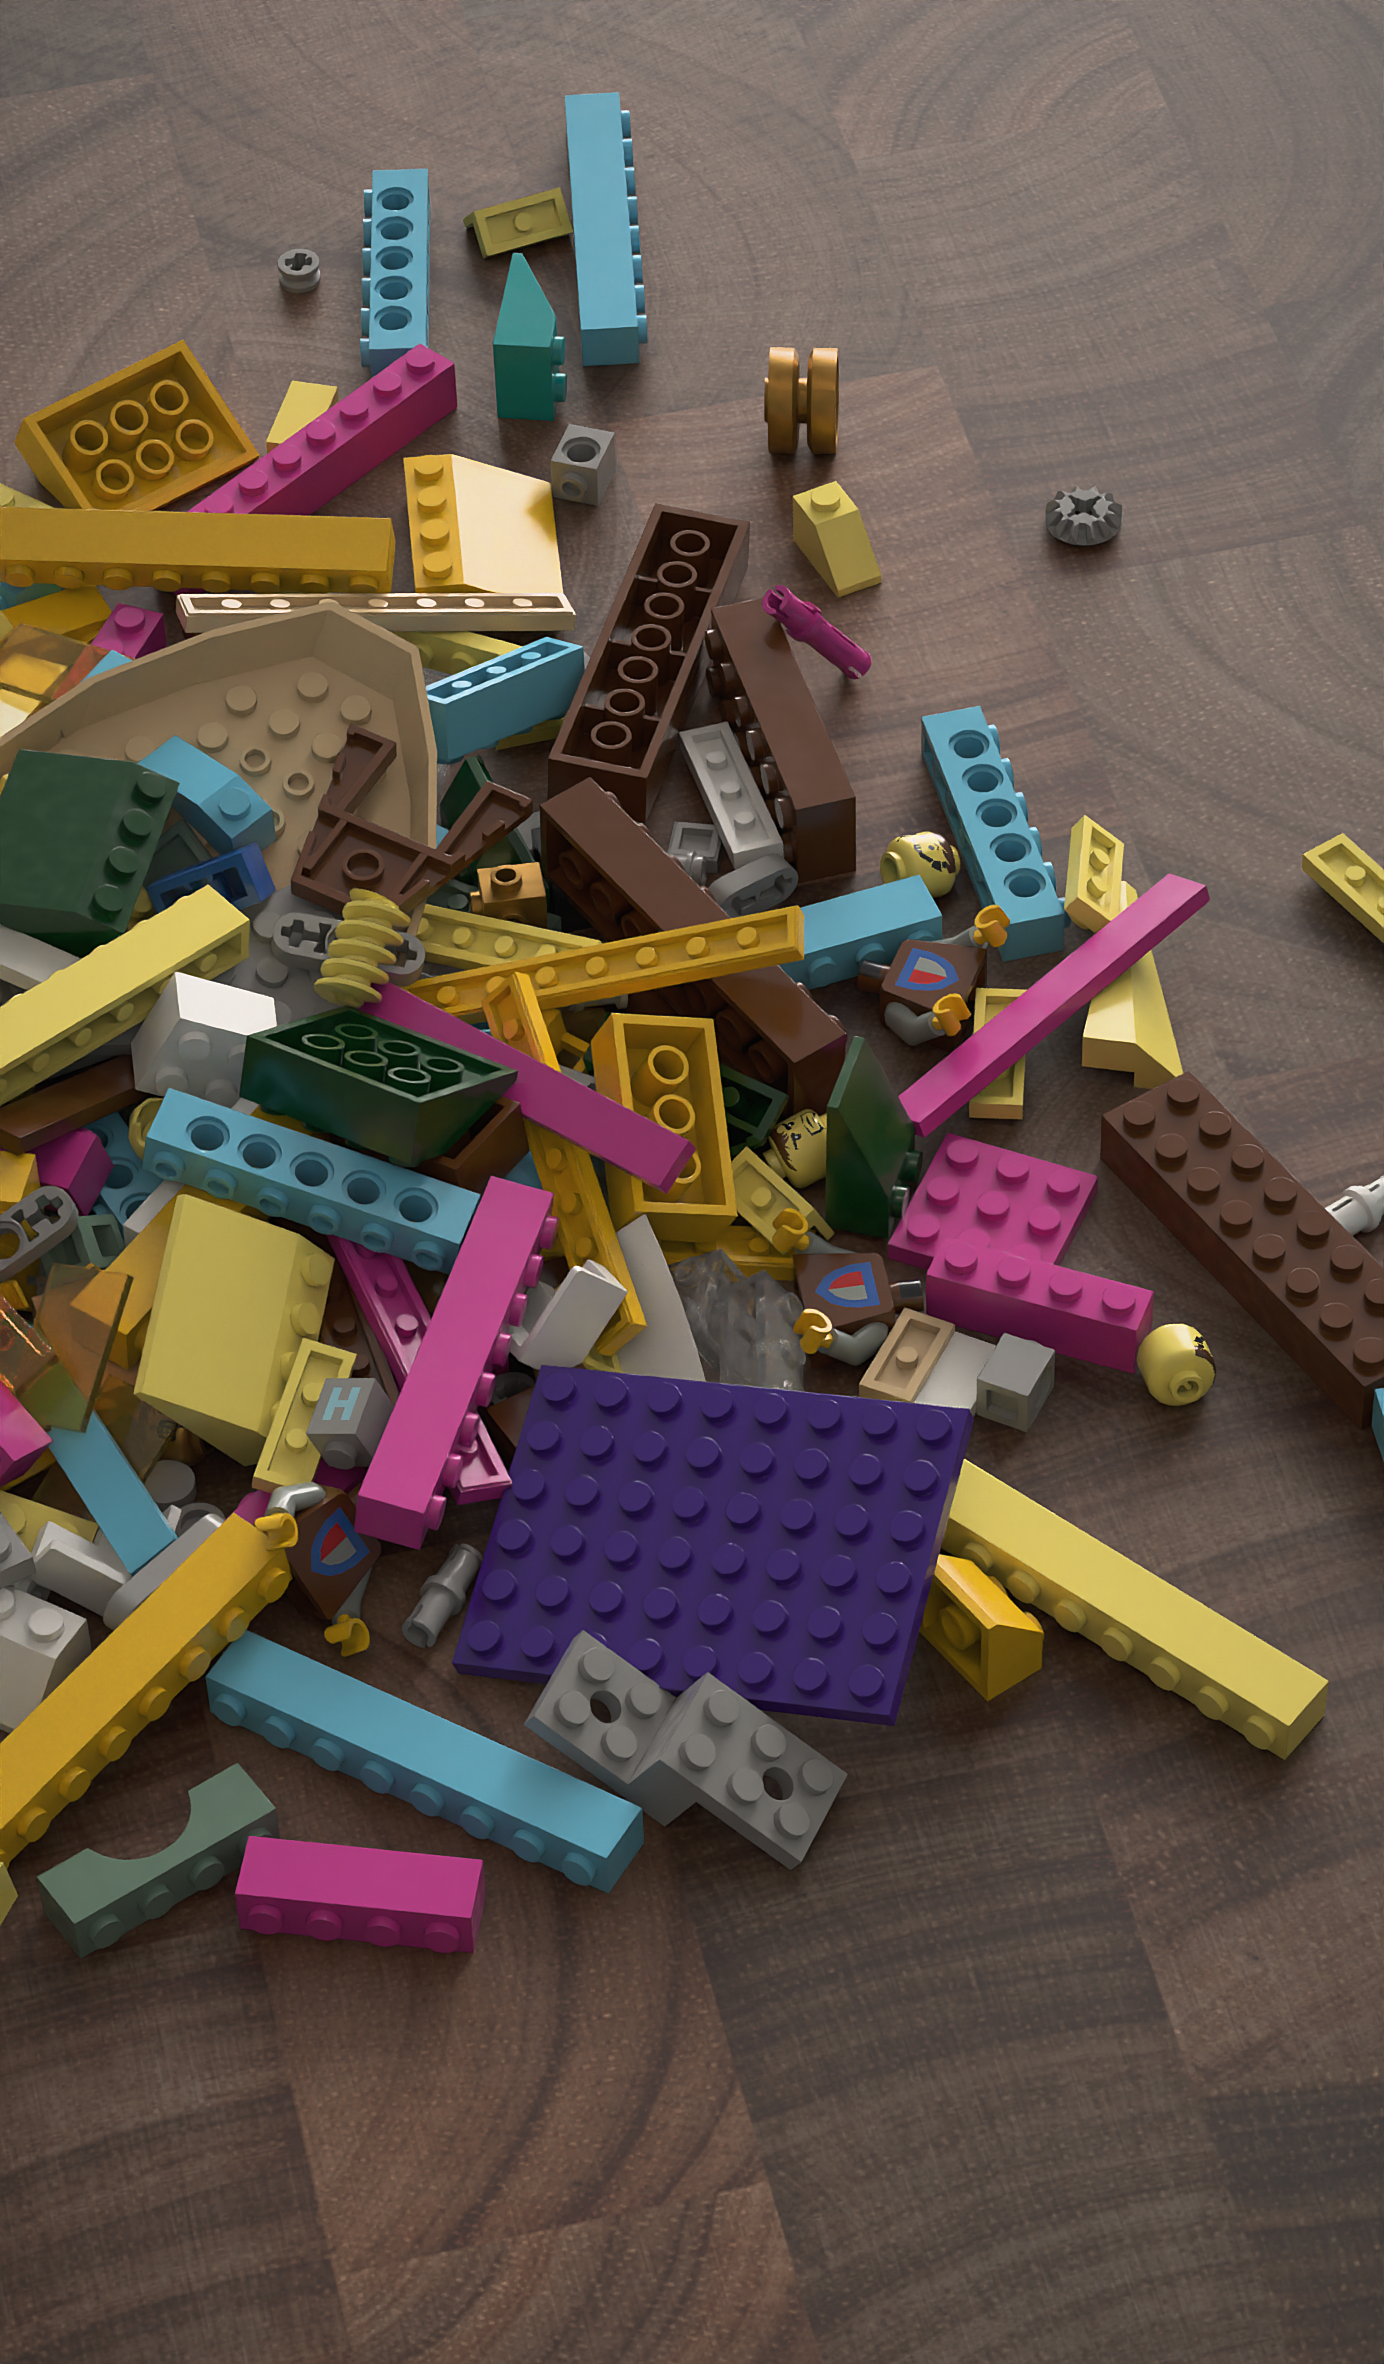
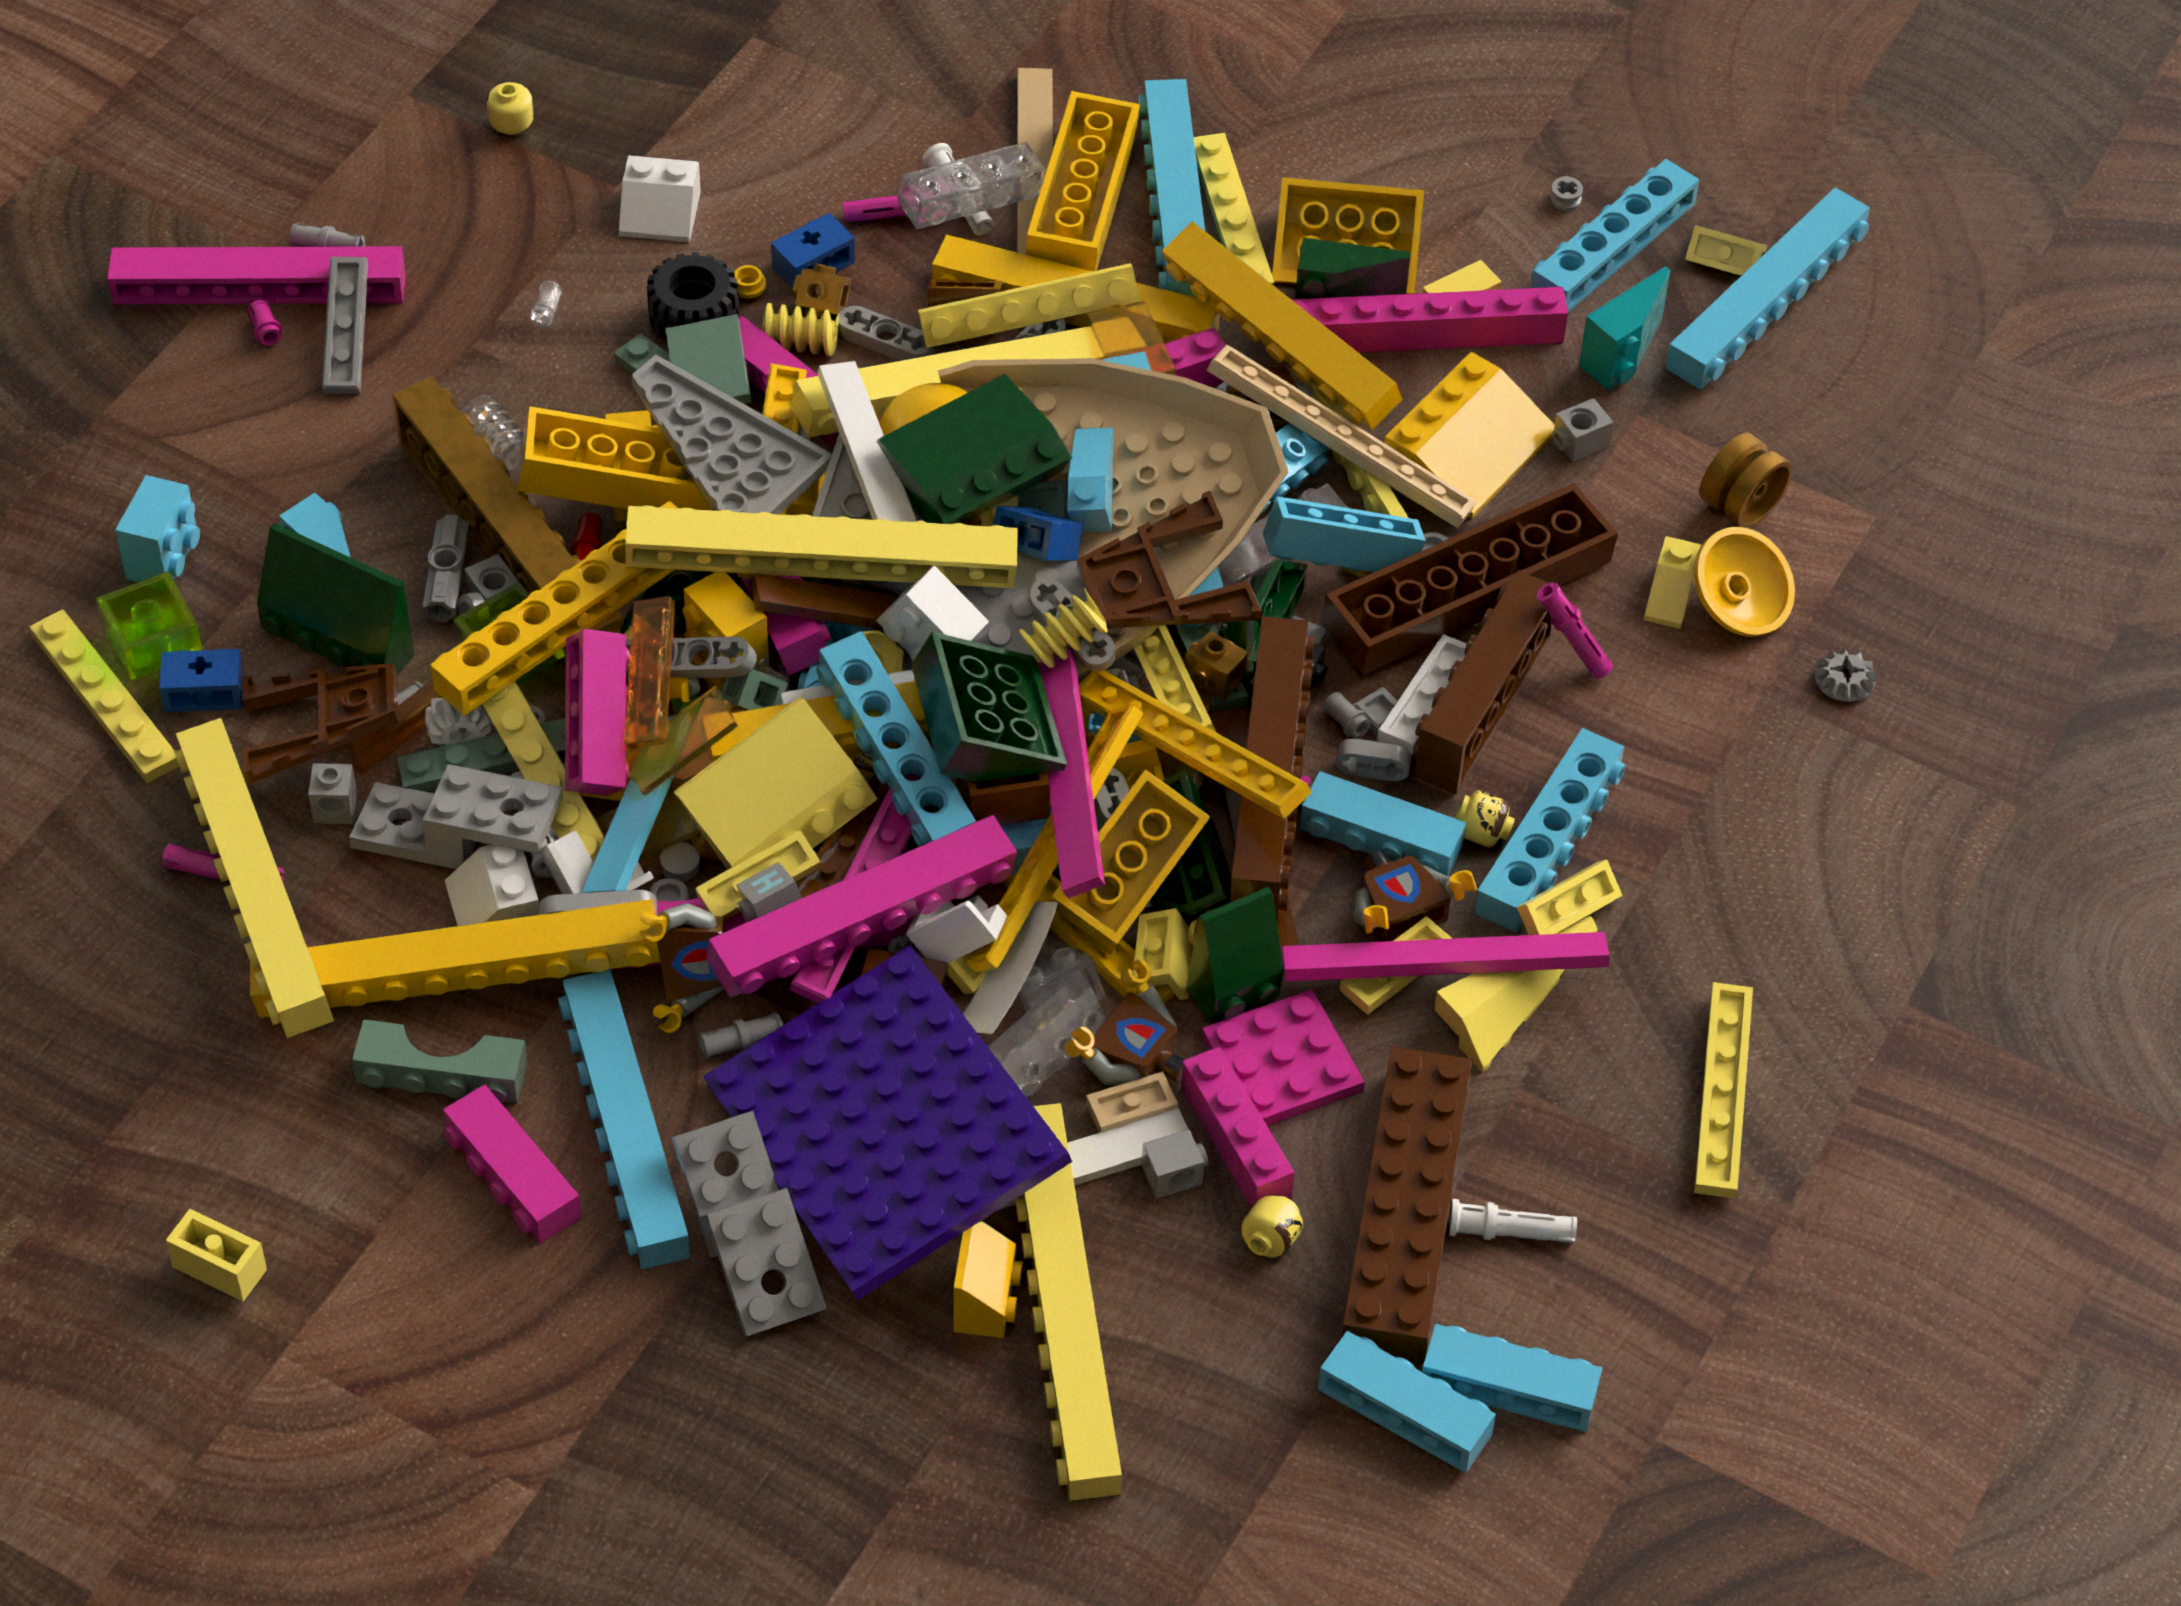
camera: 40 degrees right, 5 degrees up
(162, 2226) = (216, 1255): none -> light yellow brick
(192, 461) = (1350, 270): none -> slope
(907, 491) = (1755, 573): none -> yellow dish

